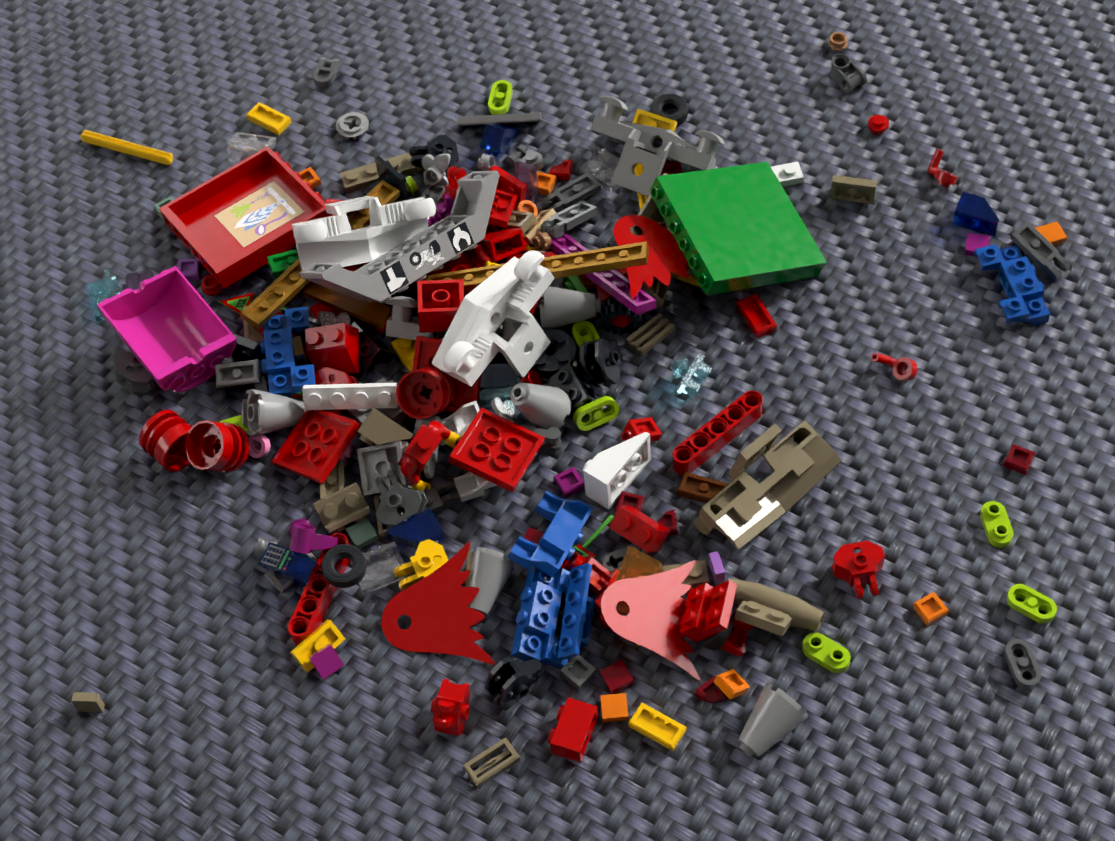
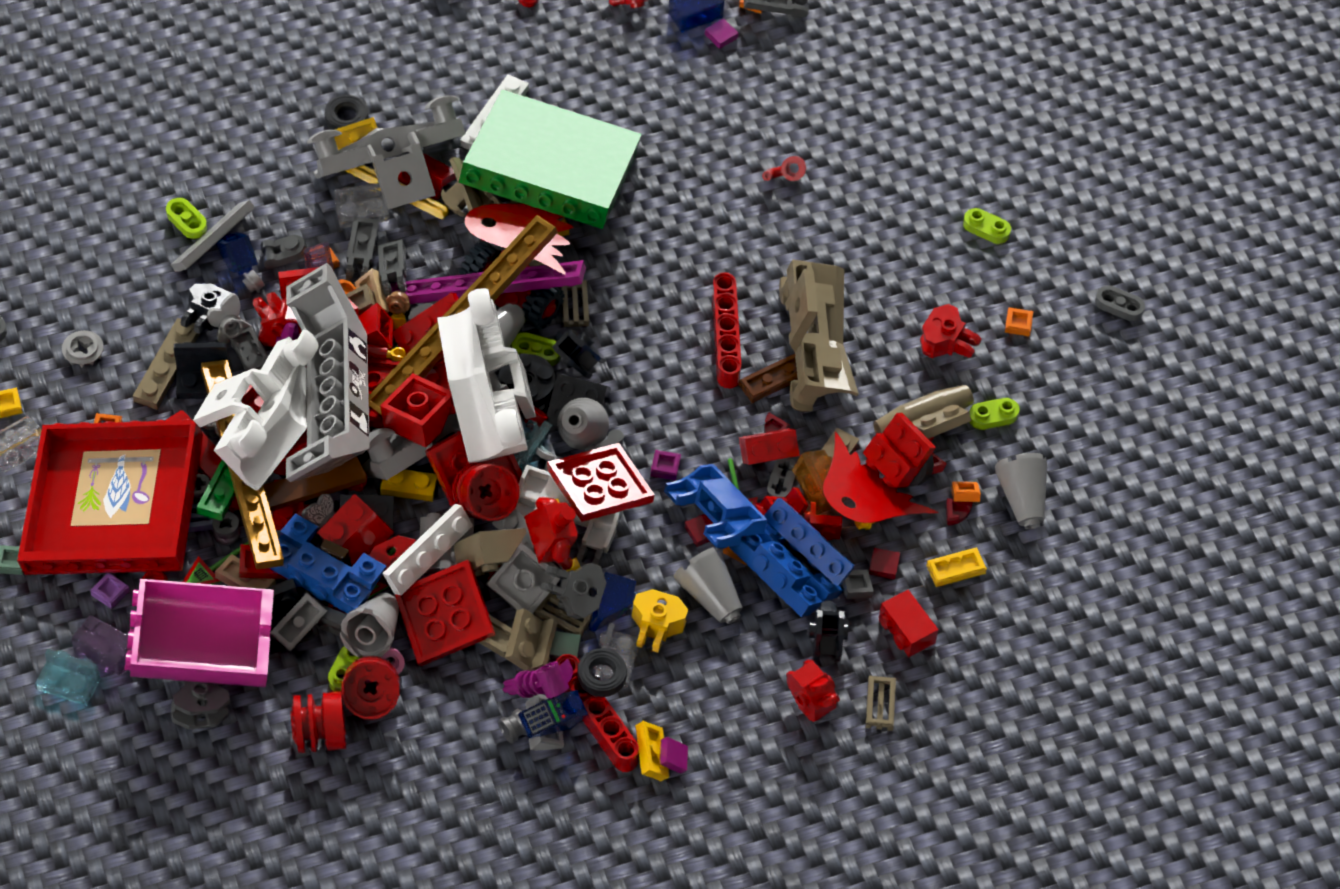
camera: 60 degrees left, 0 degrees up
(437, 614) = (710, 641): red piece -> none
(563, 170) = (325, 233): red tile -> none
(595, 414) = (620, 396): lime plate -> none
(614, 707) = (910, 580): orange tile -> none
(616, 469) = (700, 423): white slope -> none
(630, 499) = (729, 440): dark red tile -> none
(639, 426) = (670, 382): red bracket -> none
(688, 384) = (647, 305): clear light blue hips -> none
(716, 568) = (854, 424): medium lavender tile -> none
(756, 316) = (634, 221): red tile -> none
(853, 189) = (583, 61): dark tan bracket -> none
(1018, 282) = (788, 38): blue bracket -> none
(1019, 459) = (944, 167): dark red tile -> none
(1032, 603) = (1075, 257): lime plate -> none

